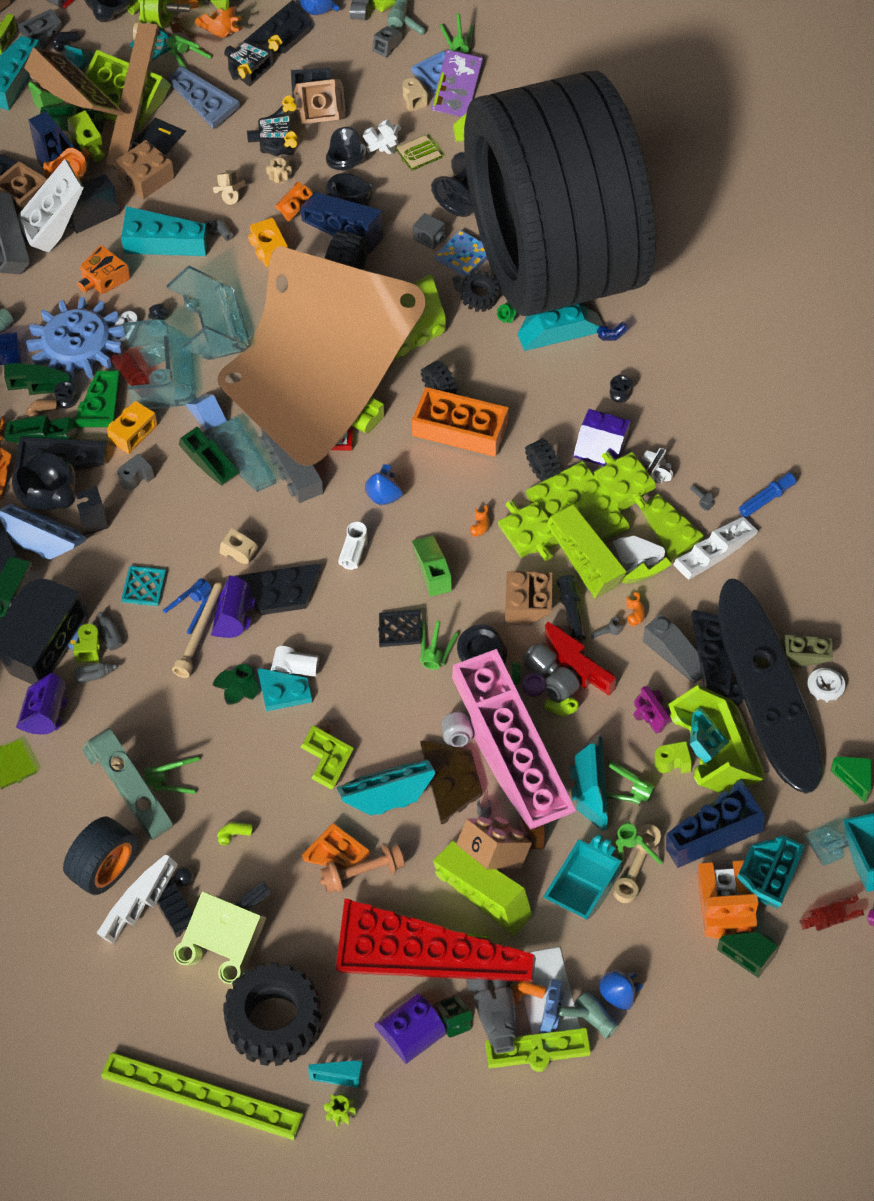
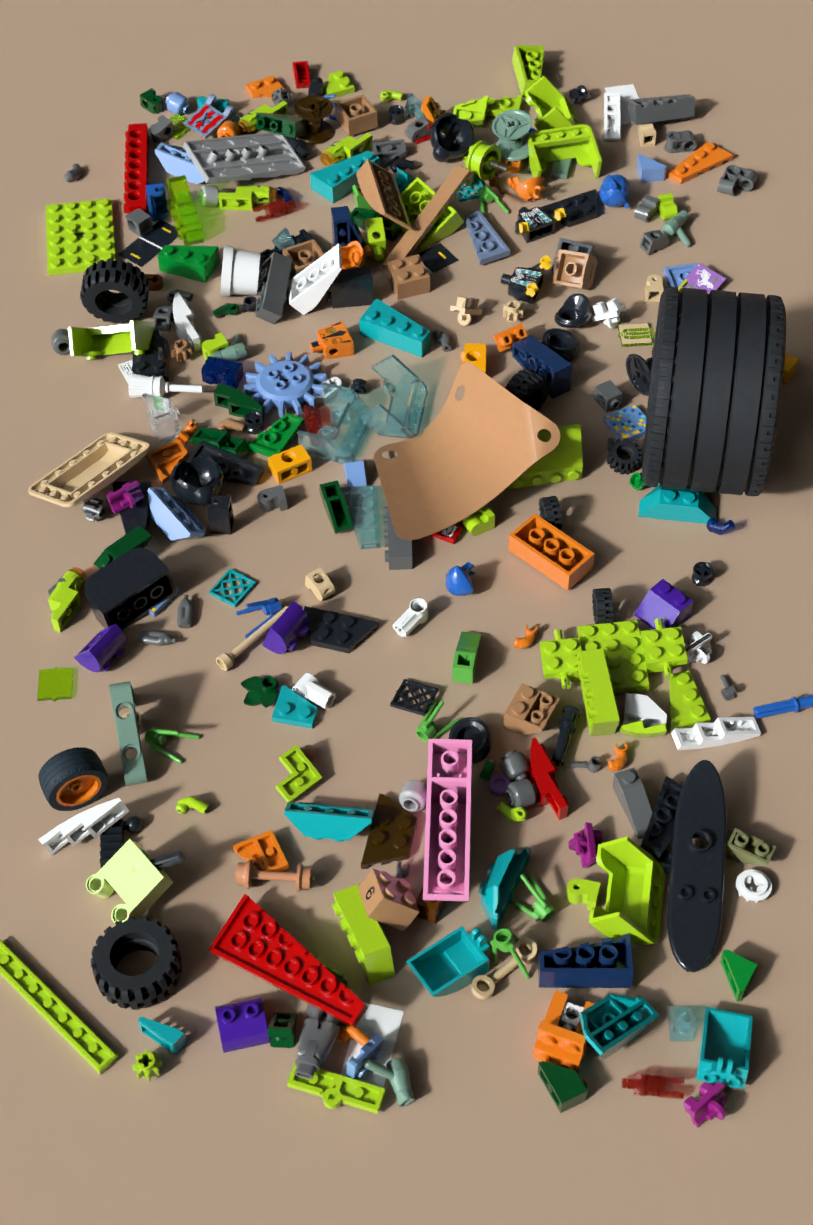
camera: 25 degrees right, 5 degrees down
(89, 647) = (163, 616): lime leg -> none
(460, 42) = (713, 262): bright green plant -> none
(619, 988) = (430, 1068): blue piece -> none
(705, 736) = (619, 885): teal wing -> none

